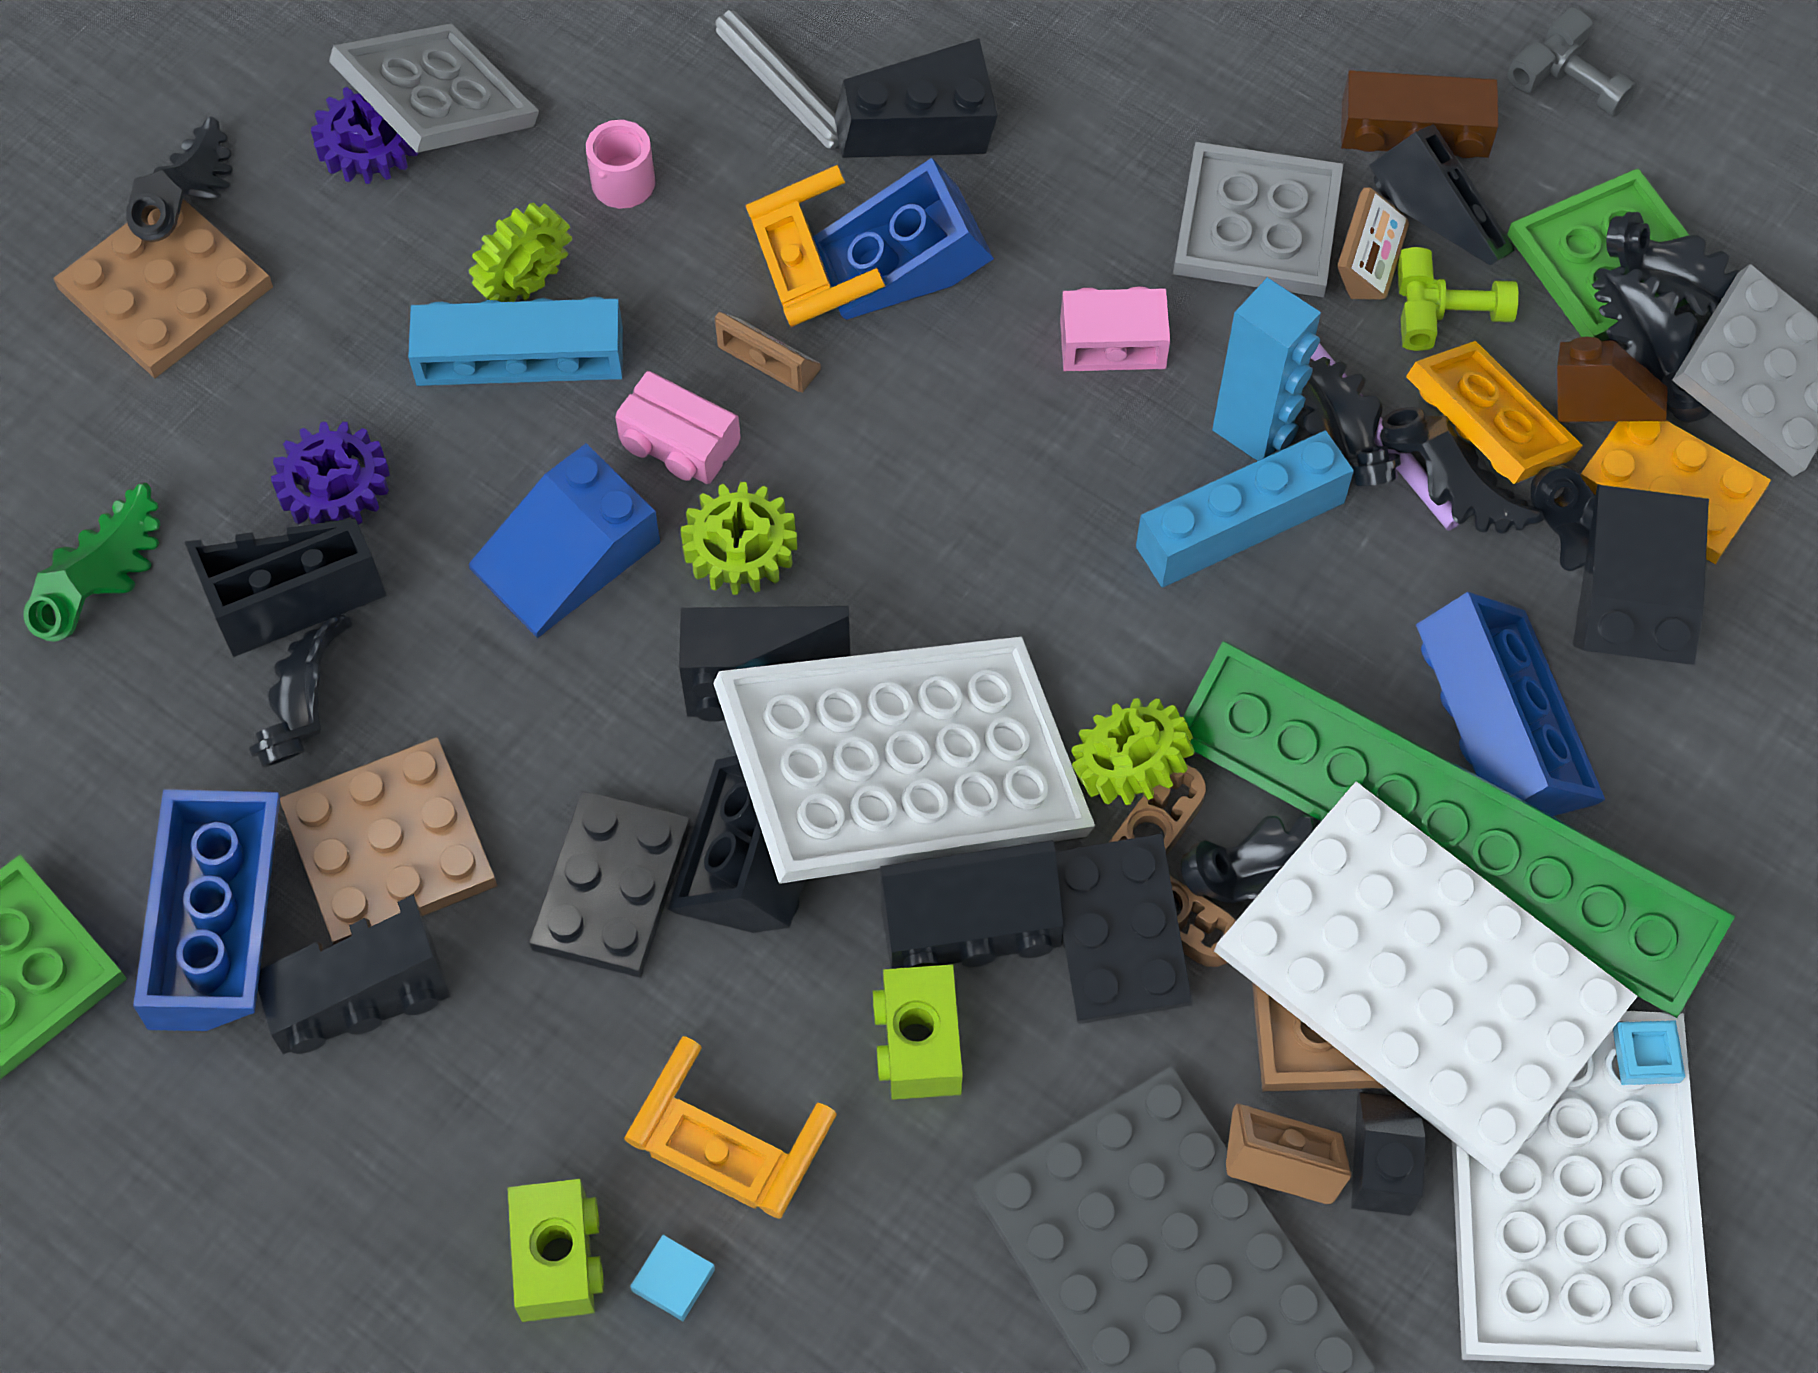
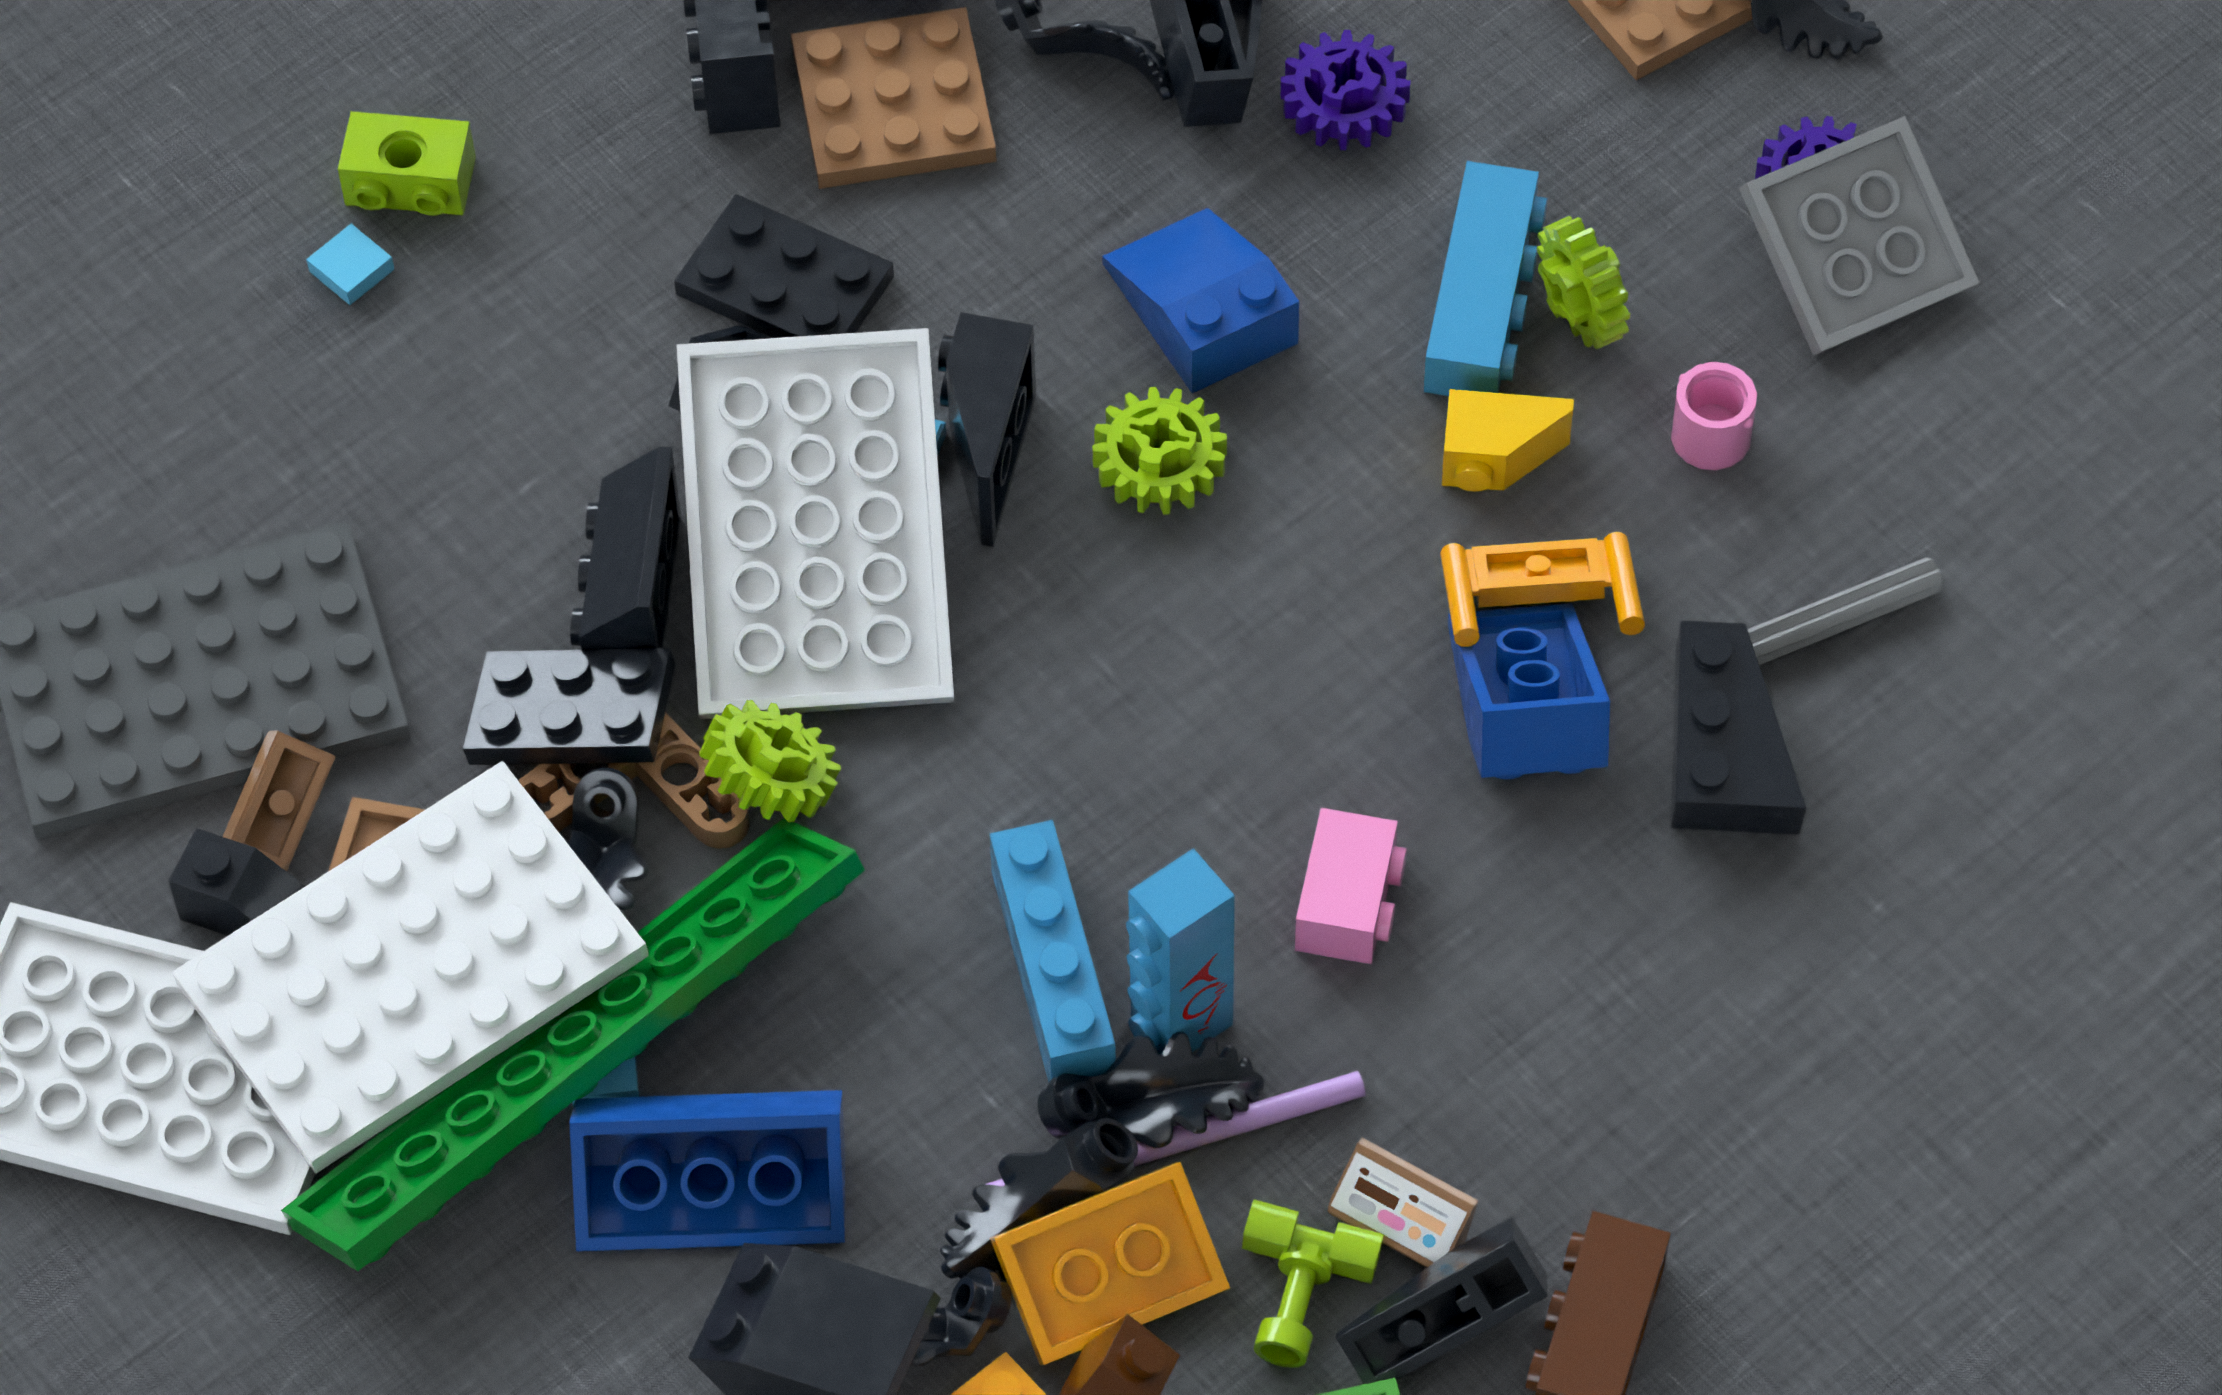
camera: 105 degrees right, 5 degrees down
(674, 305) = (1501, 437): none -> yellow slope
(677, 428) = (1321, 415): bright pink brick -> none
(718, 1151) = (461, 313): light orange plate -> none
(765, 352) = (1416, 526): medium nougat slope -> none
(927, 999) = (543, 528): lime brick -> none
(1258, 218) = (1481, 1092): light grey plate -> none
(1648, 1052) = (250, 1163): medium azure tile -> none

